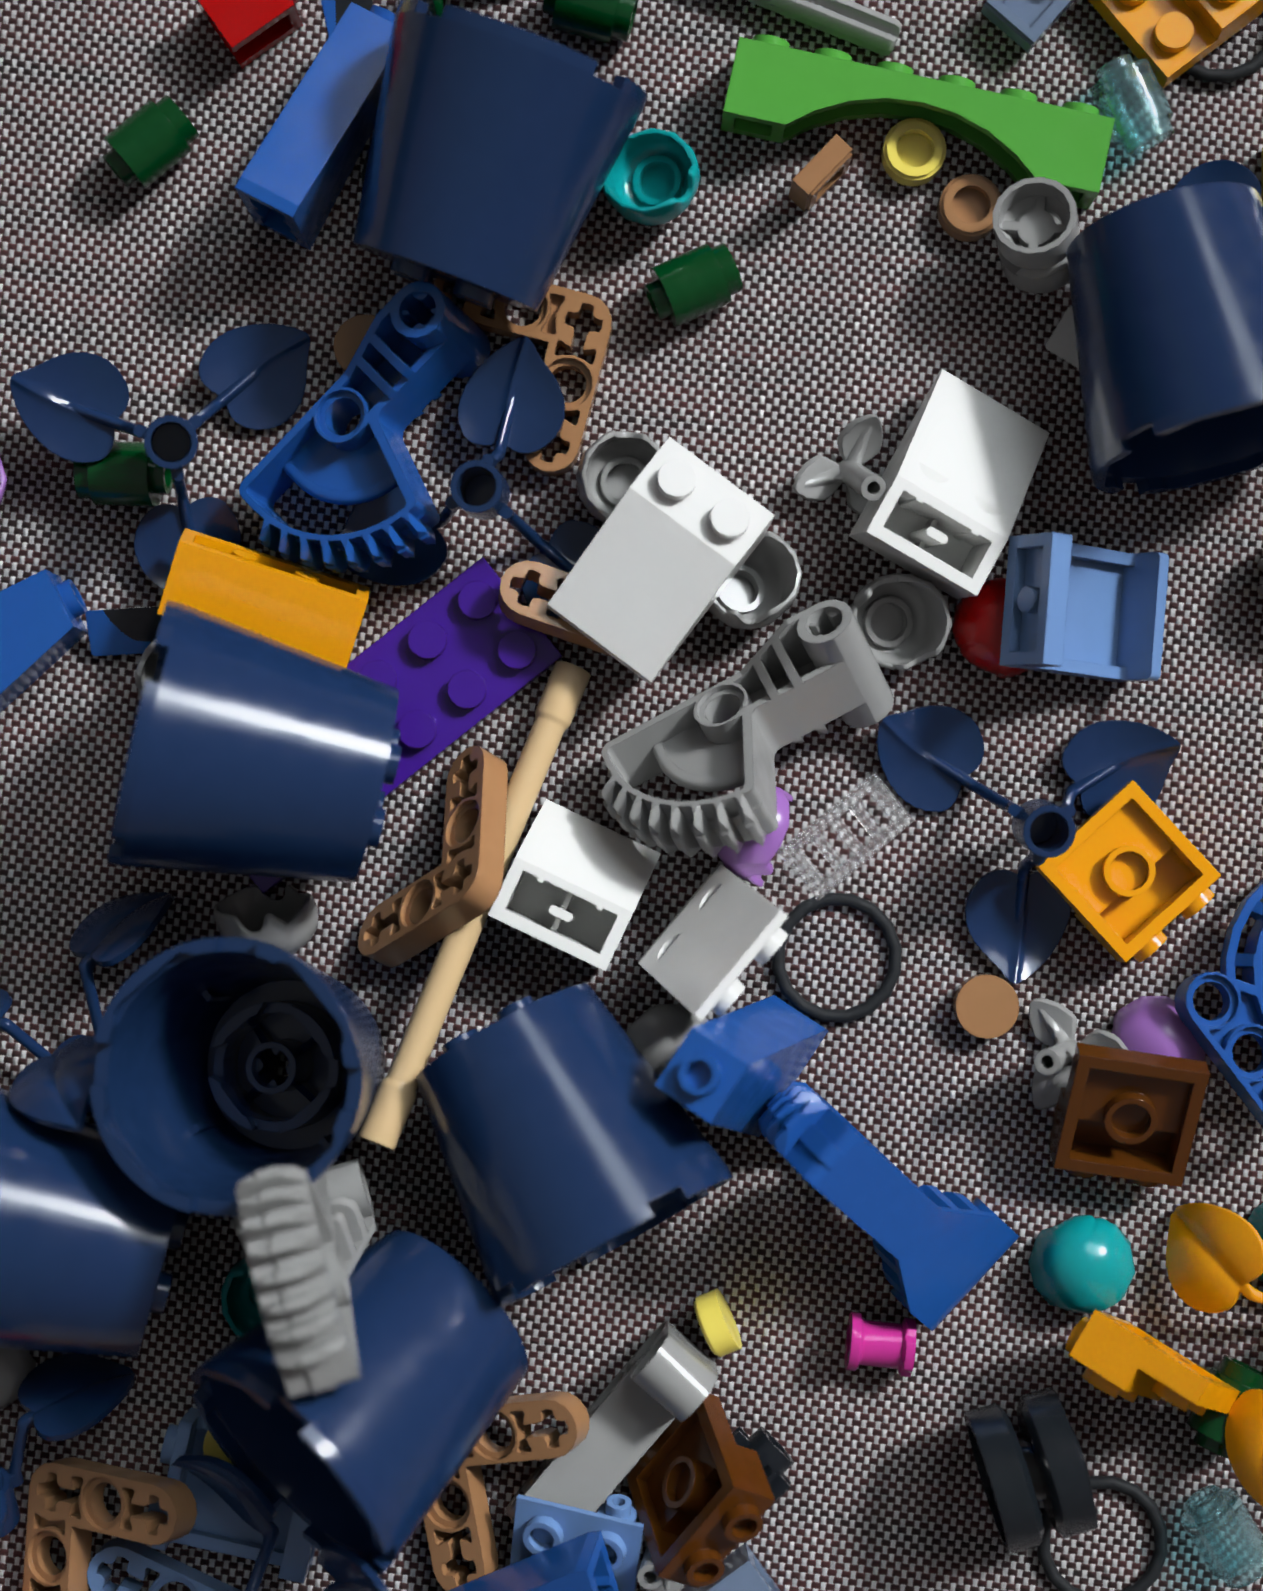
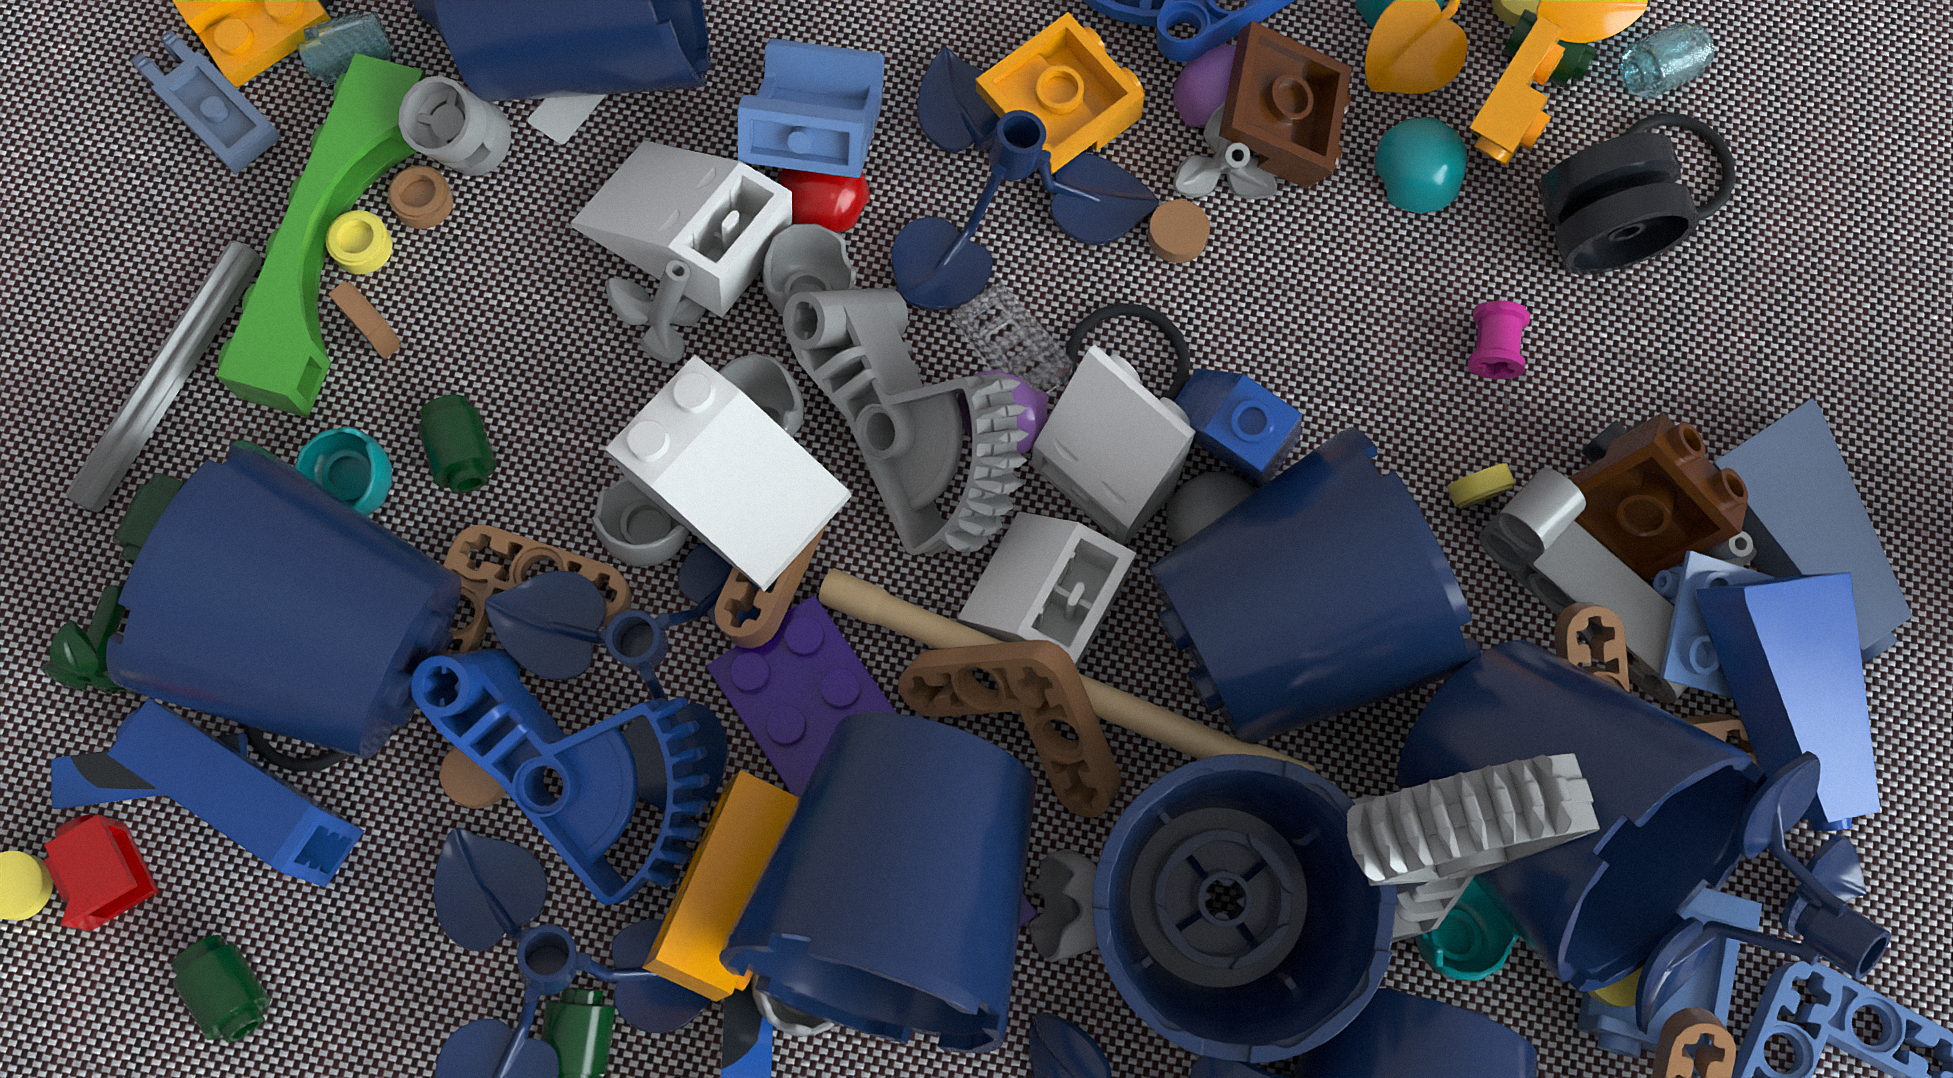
camera: 90 degrees left, 15 degrees down
(928, 1240) = (1395, 286): blue arm -> none

